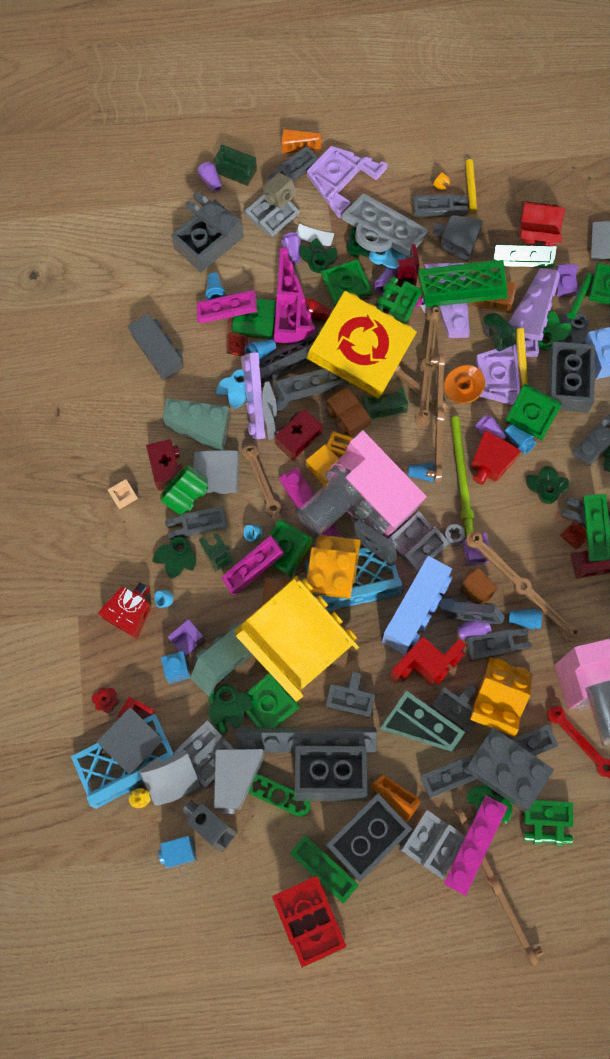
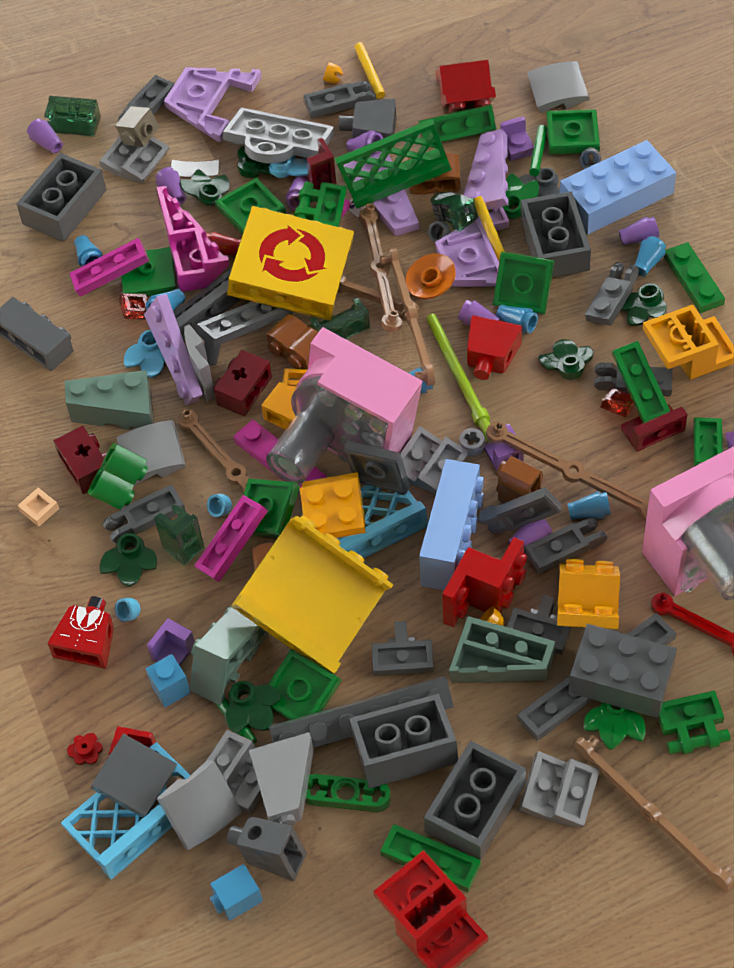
camera: 15 degrees left, 15 degrees down
(139, 798) = (166, 841): yellow axle -> none
(214, 215) = (63, 168): dark grey hinge -> none
(295, 141) = (138, 72): orange slope -> none
(397, 797) = (508, 748): orange slope -> none
(424, 690) = (493, 616): none -> light orange hinge
(450, 253) = (363, 140): none -> medium lavender cone
(475, 845) = (611, 771): dark pink plate -> none
(481, 342) = (436, 228): none -> dark grey hinge

